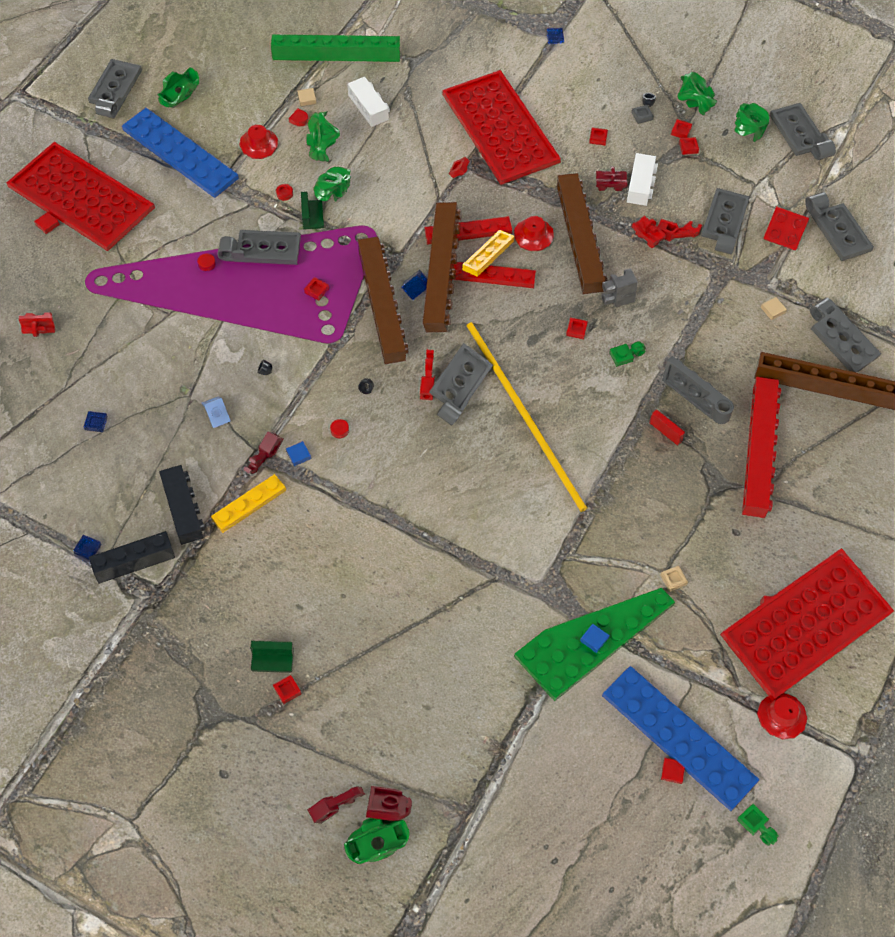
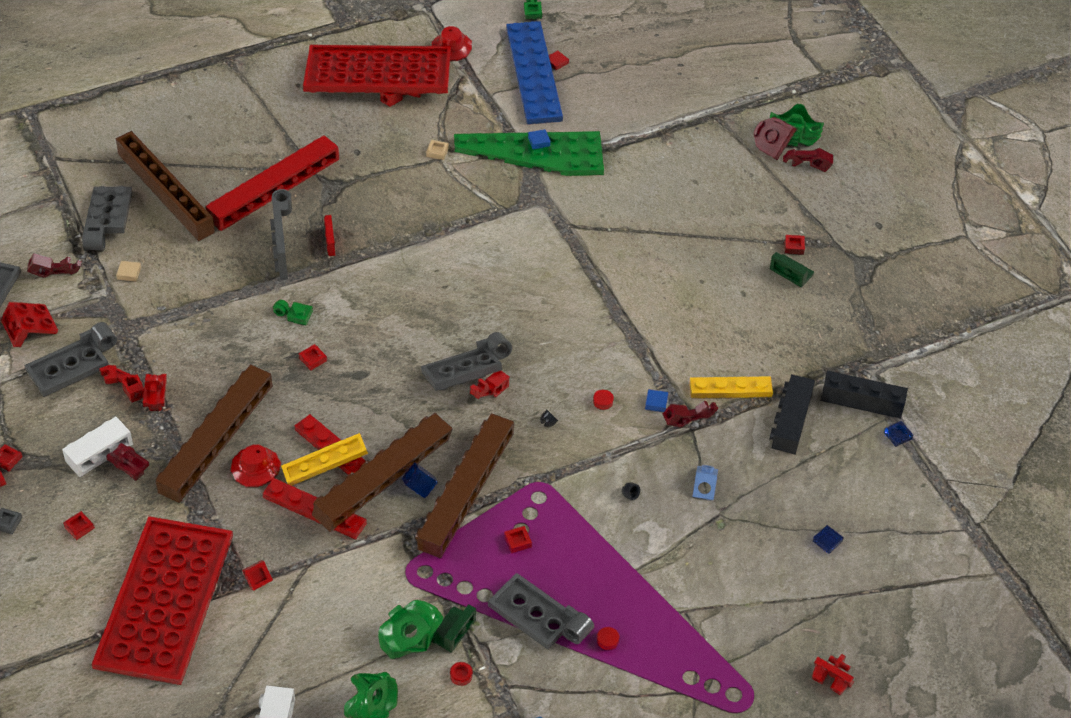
camera: 145 degrees left, 10 degrees down
(527, 418) = (430, 323): yellow piece -> none
(620, 289) = (244, 350): flat silver hips -> none
(827, 270) = (44, 266): none -> dark red piece

